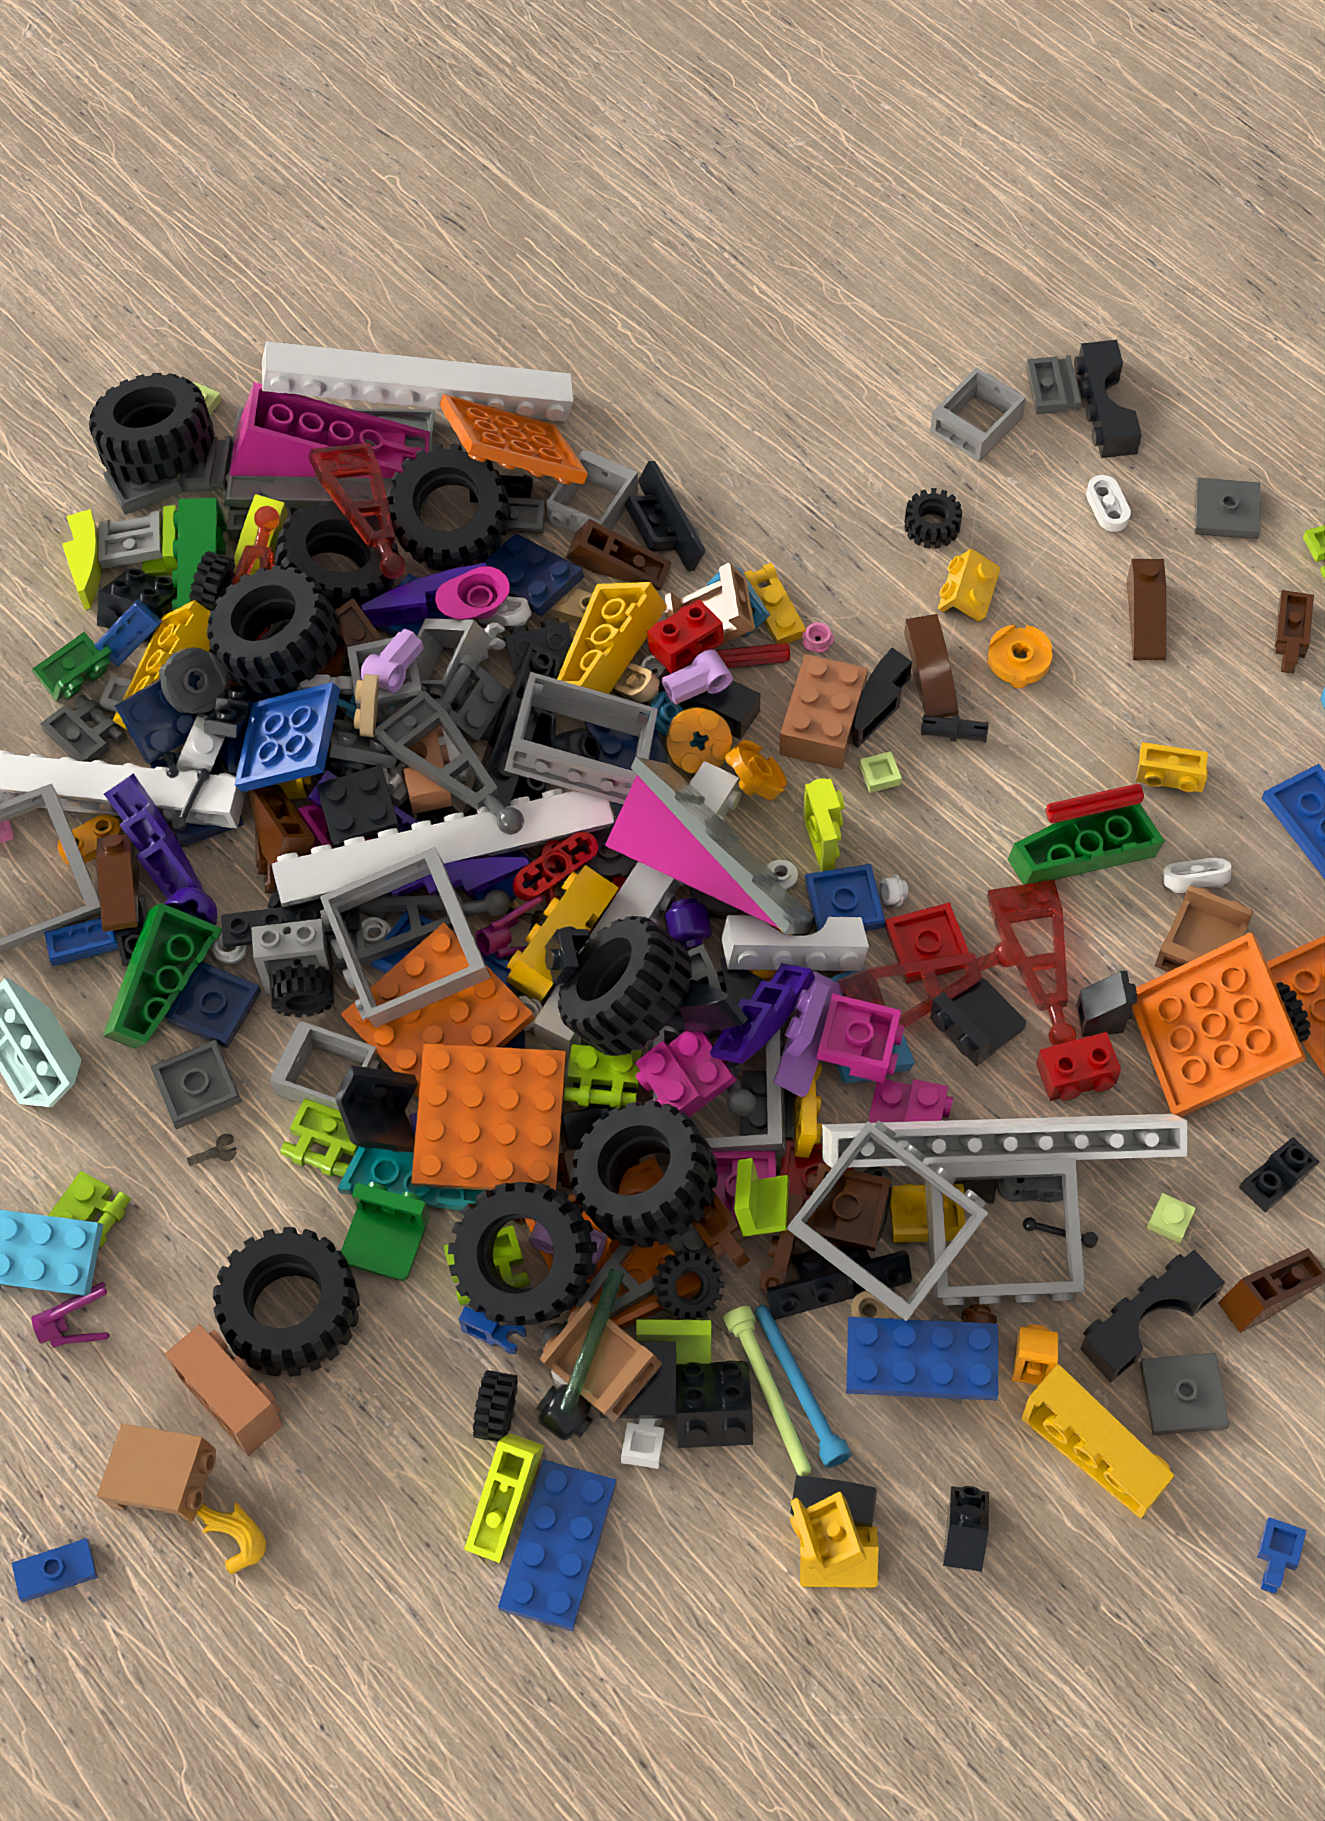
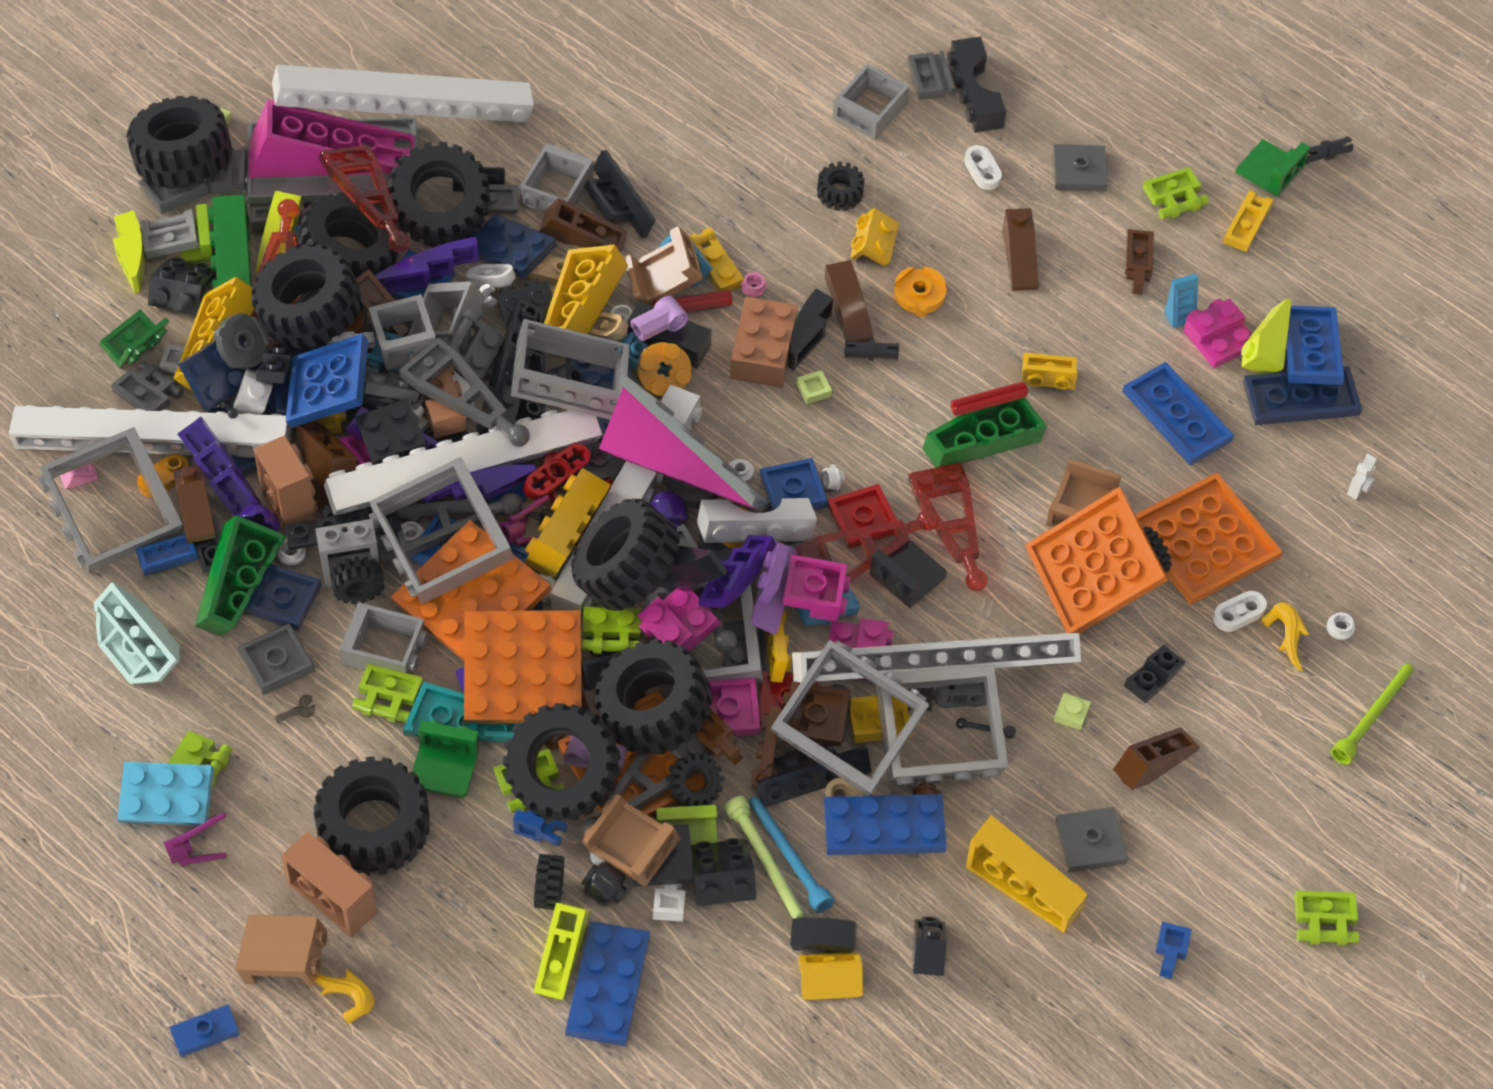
camera: 10 degrees left, 5 degrees down
(129, 632) = (179, 307): blue plate -> none
(179, 822) = (242, 454): black hinge -> none
(212, 579) = (249, 259): black tyre -> none
(227, 862) = (285, 482): none -> nougat brick
(366, 717) = (392, 360): tan plate -> none
(375, 1106) = (429, 661): black bracket -> none
(393, 660) = (408, 319): lavender piece -> none
(473, 594) = (468, 261): dark pink piece -> none
(513, 440) = (488, 137): orange plate -> none
(562, 951) = (572, 532): black bracket -> none
(591, 1342) = (622, 825): clear green bar -> none
(685, 636) = (646, 286): red brick -> none
(756, 772) = (713, 392): light orange plate -> none
(760, 1203) = (747, 715): lime panel -> none
(823, 820) = (771, 425): neon yellow plate -> none
(827, 1535) = (823, 953): yellow bracket -> none
(1034, 1354) = (971, 815): light orange slope -> none
(1078, 1067) = (991, 602): red brick -> none
(1106, 1005) = (1010, 553): black slope -> none
(1184, 1287) = (1085, 760): black arch -> none
(1197, 873) = (1079, 450): white plate -> none

